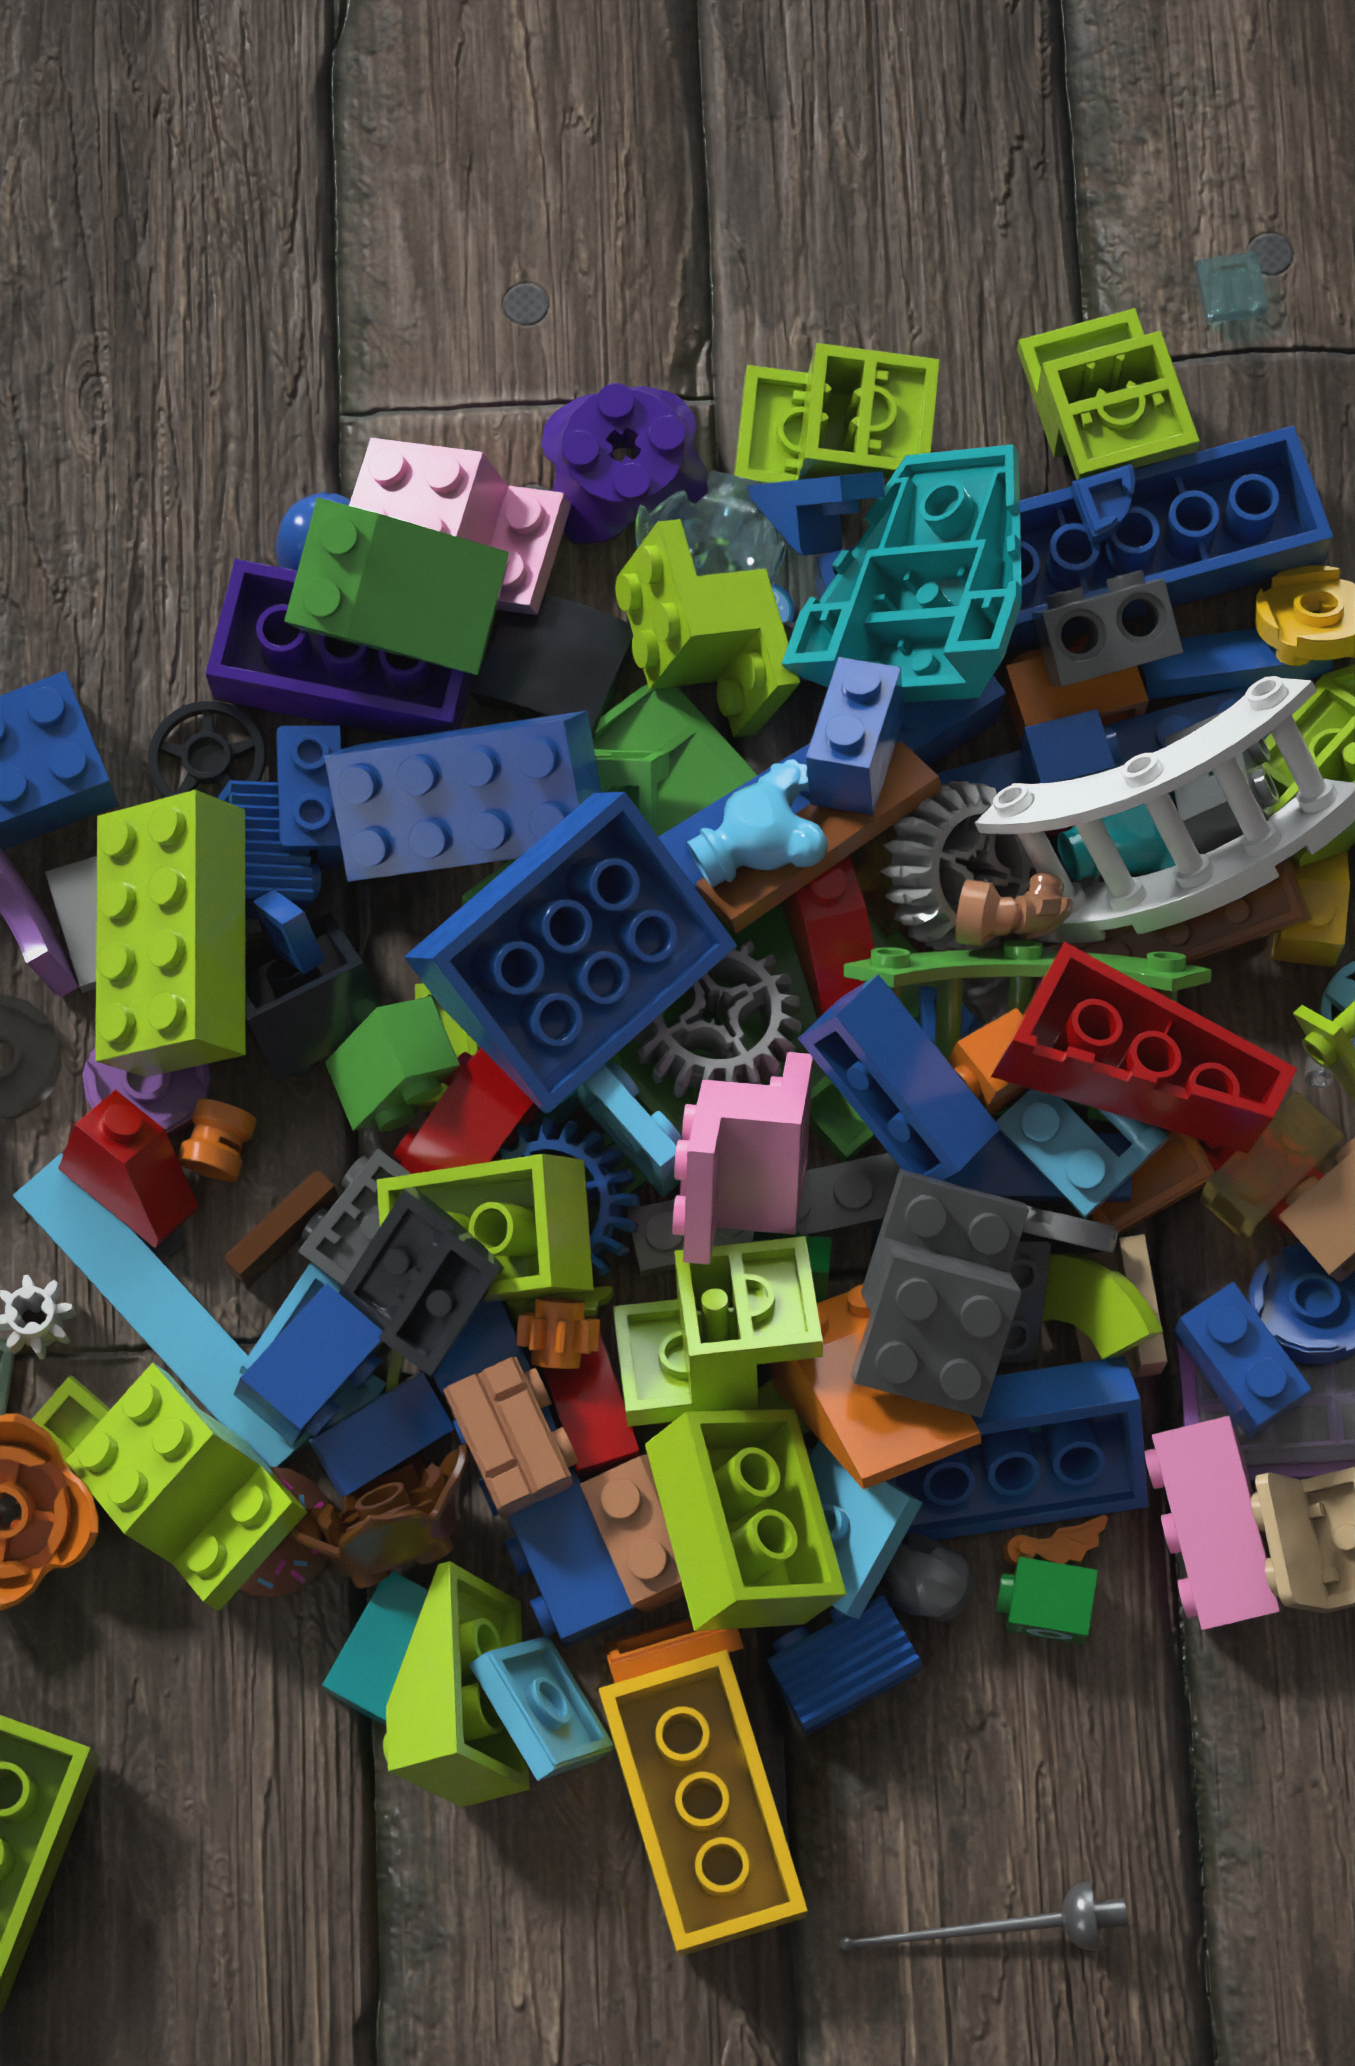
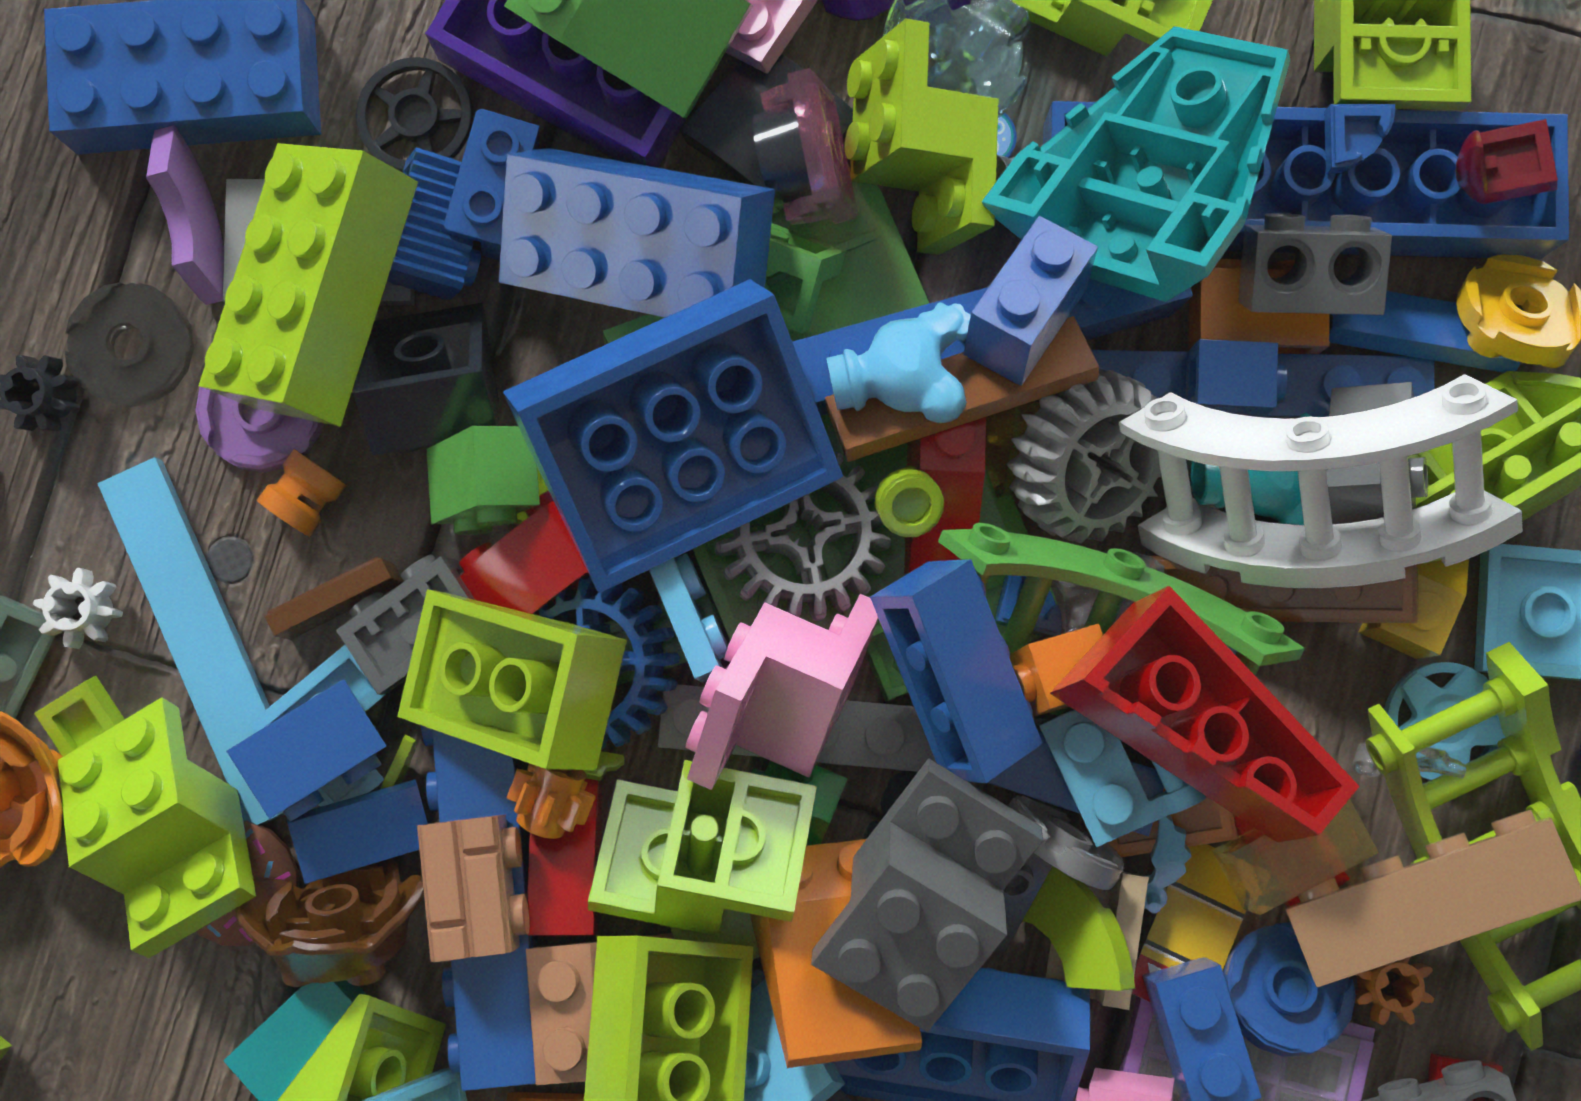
camera: 20 degrees right, 10 degrees up
(129, 1168) = (208, 496): red slope -> none
(289, 931) = (424, 315): blue tile -> none
(421, 1280) = (432, 709): black slope -> none
(600, 671) = (804, 151): none -> clear pink piece
(805, 954) = (909, 502): none -> lime tile
(810, 509) = (1063, 49): blue slope -> none
(987, 915) = (1143, 532): nougat arm -> none
(1160, 1217) = (1169, 862): none -> medium azure piece
(1201, 1263) = (1195, 922): none -> yellow sticker
(1249, 485) = (1507, 163): none -> dark red plate

